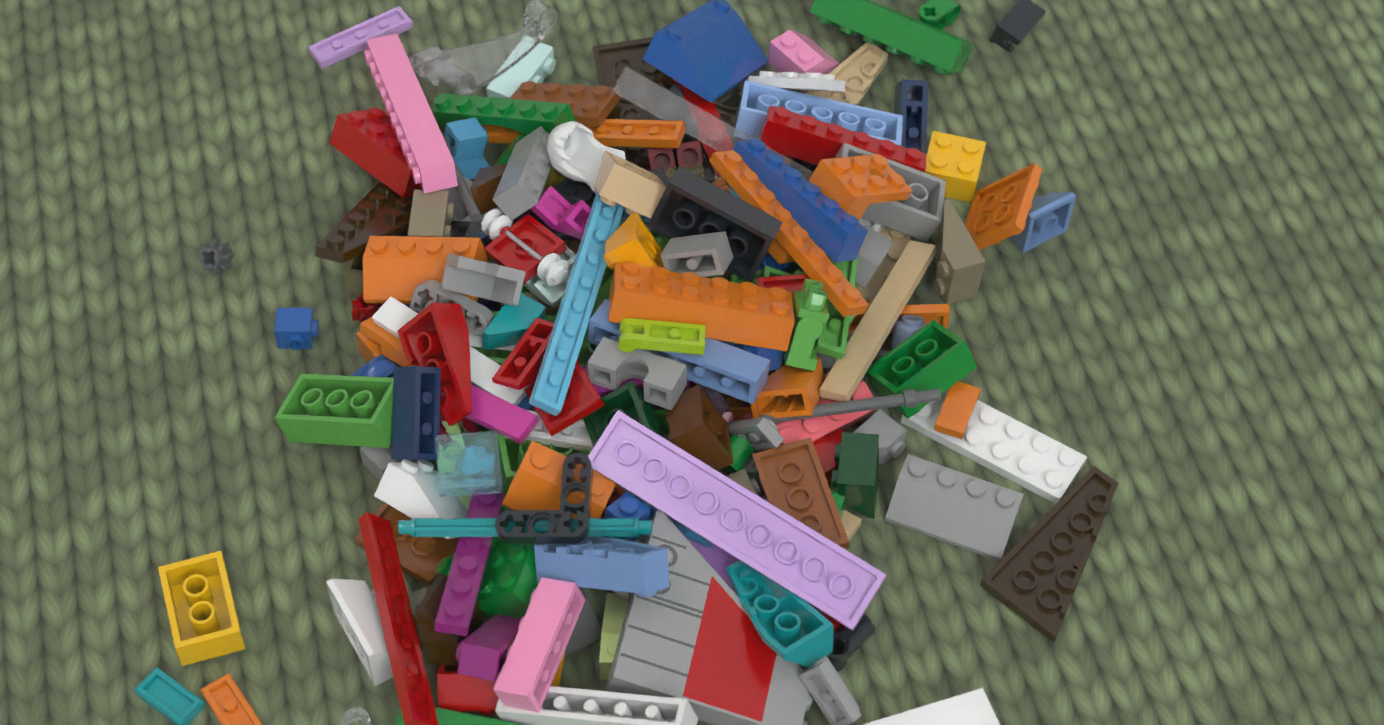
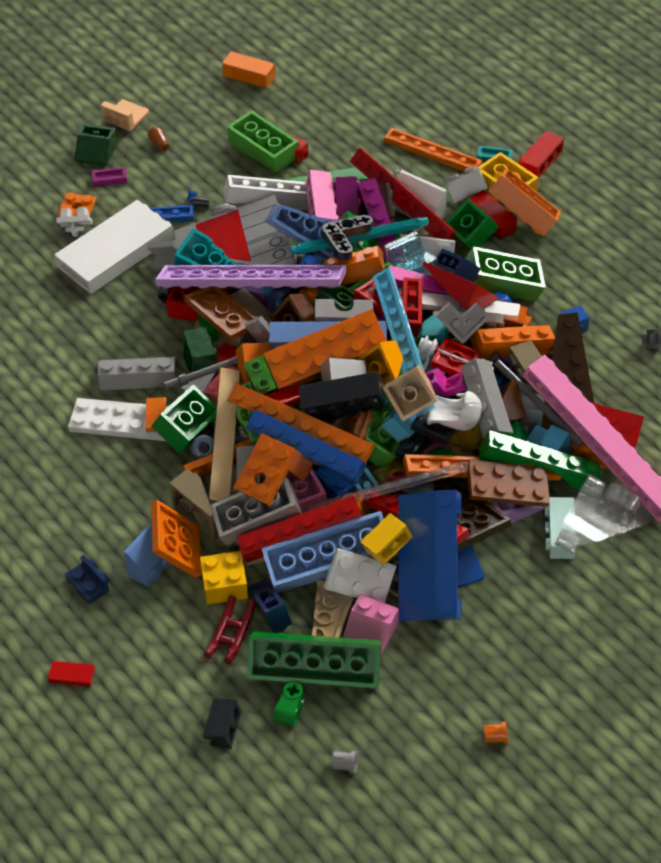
camera: 160 degrees right, 5 degrees down
(101, 649) = (542, 153): none -> red brick
(215, 526) = (524, 202): none -> orange slope
(272, 562) = (503, 218): none -> red brick
(273, 614) = (466, 184): none -> light grey brick
(324, 531) = (471, 224): none -> green brick
(661, 336) = (333, 316): lime plate -> none
(754, 69) = (386, 539): none -> yellow brick
(969, 102) = (226, 621): none -> dark red piece
(1047, 563) = (72, 364): dark brown wing -> none
(1121, 235) = (88, 580): none -> dark blue bracket
(1172, 140) = (71, 673): none -> red tile

